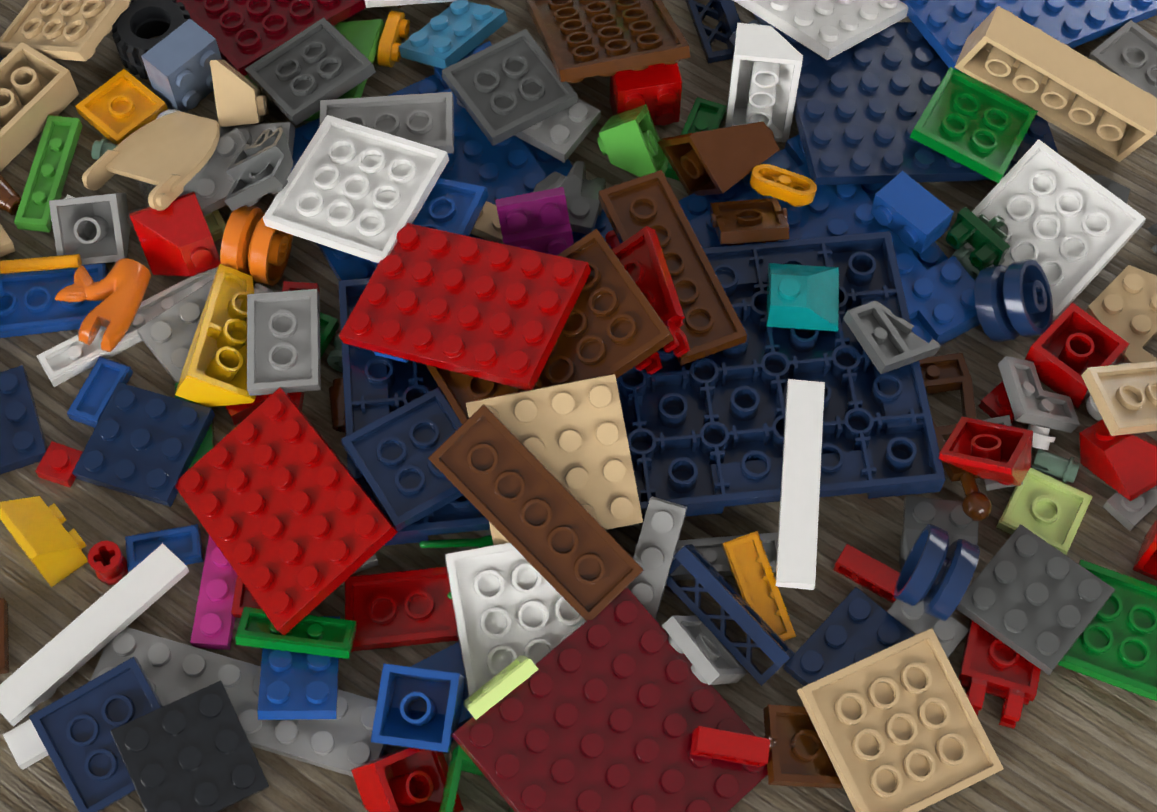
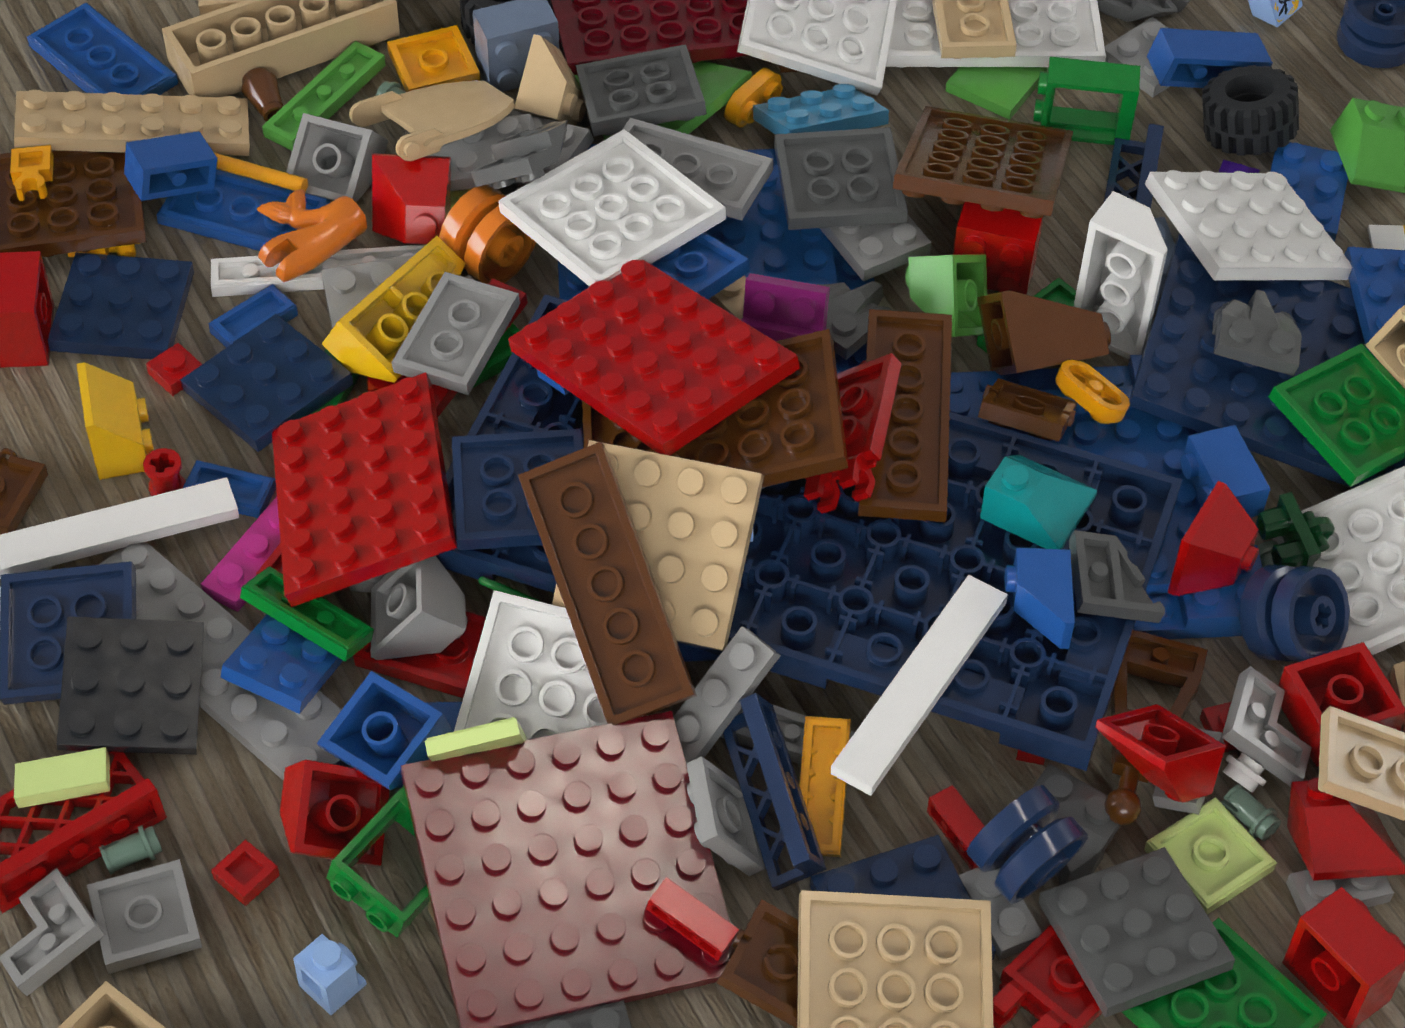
camera: 25 degrees right, 10 degrees down
(382, 593) = (416, 611): none -> light grey slope
(851, 369) = (1043, 591): none -> blue slope
(878, 90) = (1257, 334): none -> dark grey plate
(938, 273) = (1215, 545): none -> red slope

